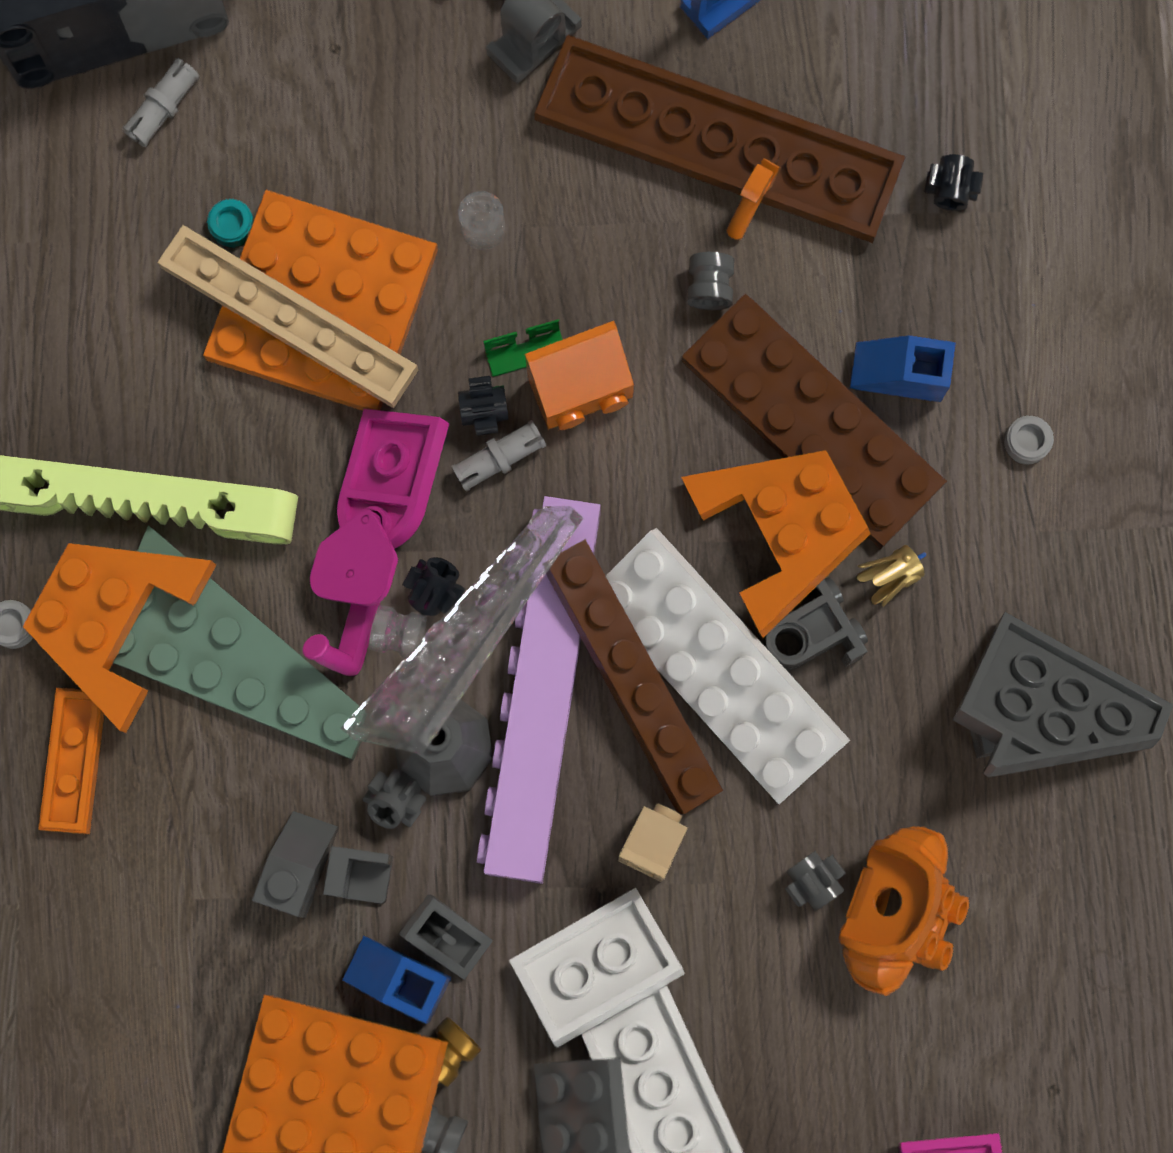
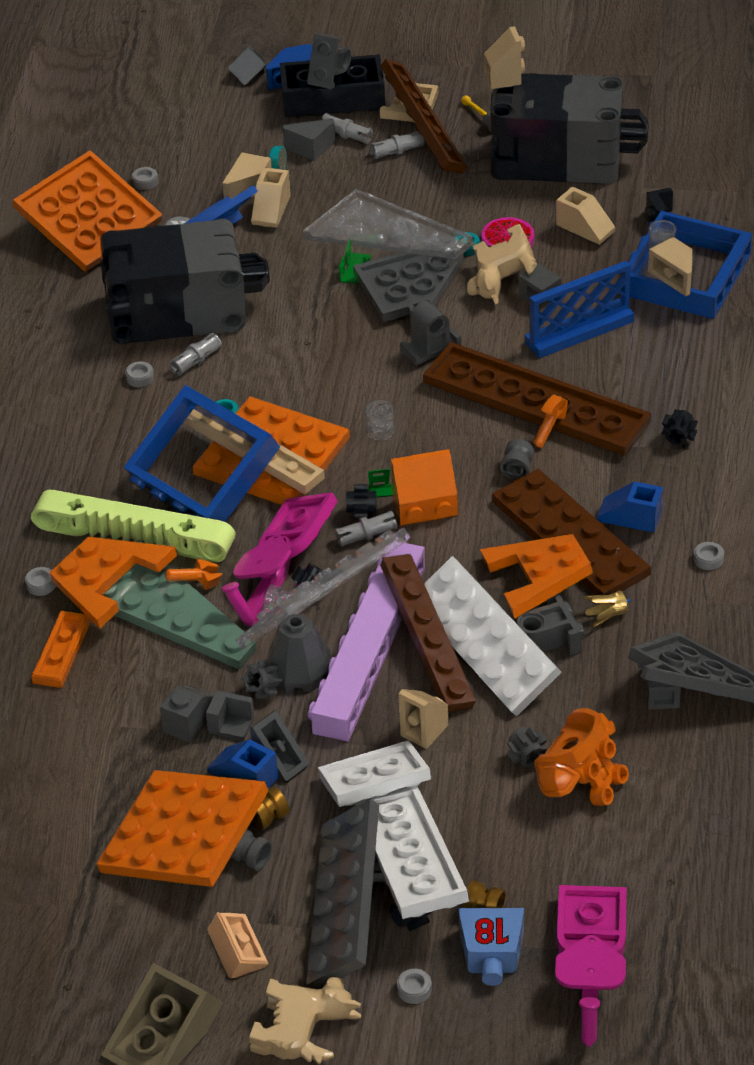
camera: 10 degrees right, 35 degrees down
(79, 155) = (139, 374): none -> light grey tile
(251, 589) = (204, 572): none -> orange bar
(255, 299) = (237, 484): none -> blue window

